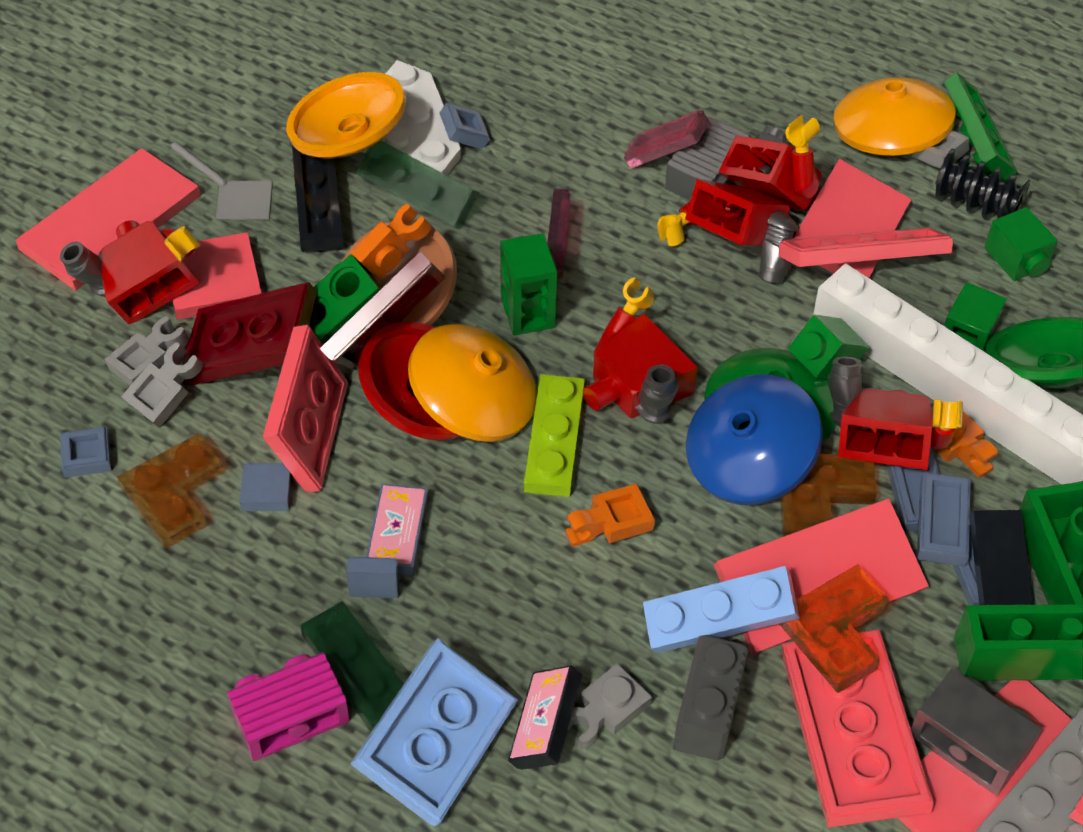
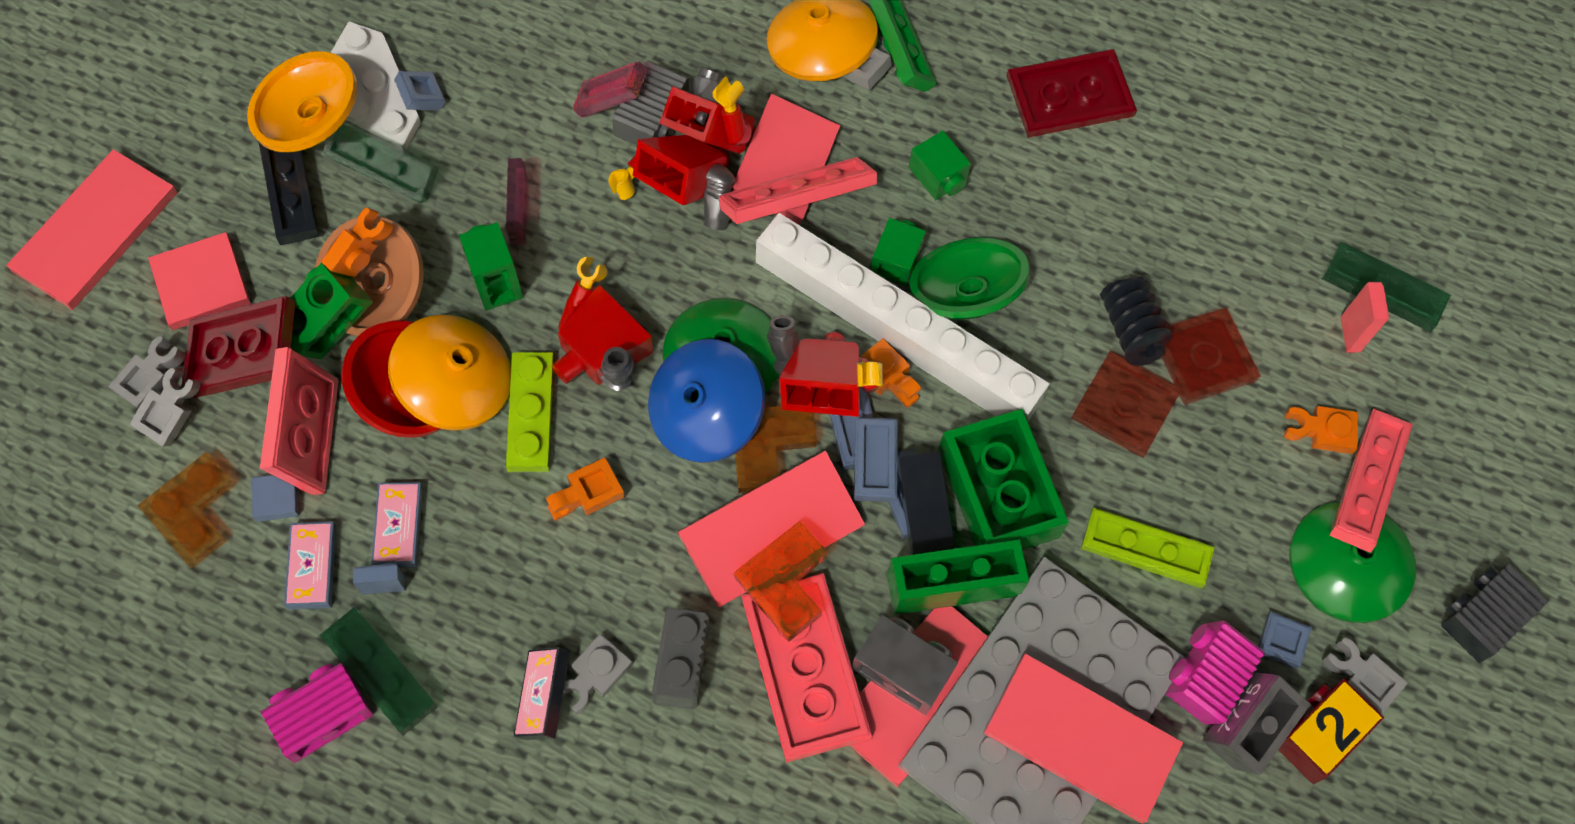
camera: 10 degrees left, 15 degrees up
(85, 452) = (105, 481): sand blue tile -> none
(137, 269) = (123, 290): red torso -> none
(236, 198) = (214, 191): light grey piece -> none
(296, 559) = (310, 565): none -> bright pink tile
(387, 307) = (358, 319): tile -> none
(434, 732) = (447, 721): light blue tile -> none
(721, 609) = (685, 576): light blue plate -> none
(825, 340) = (768, 296): green brick -> none
(978, 188) = (900, 110): black piece -> none

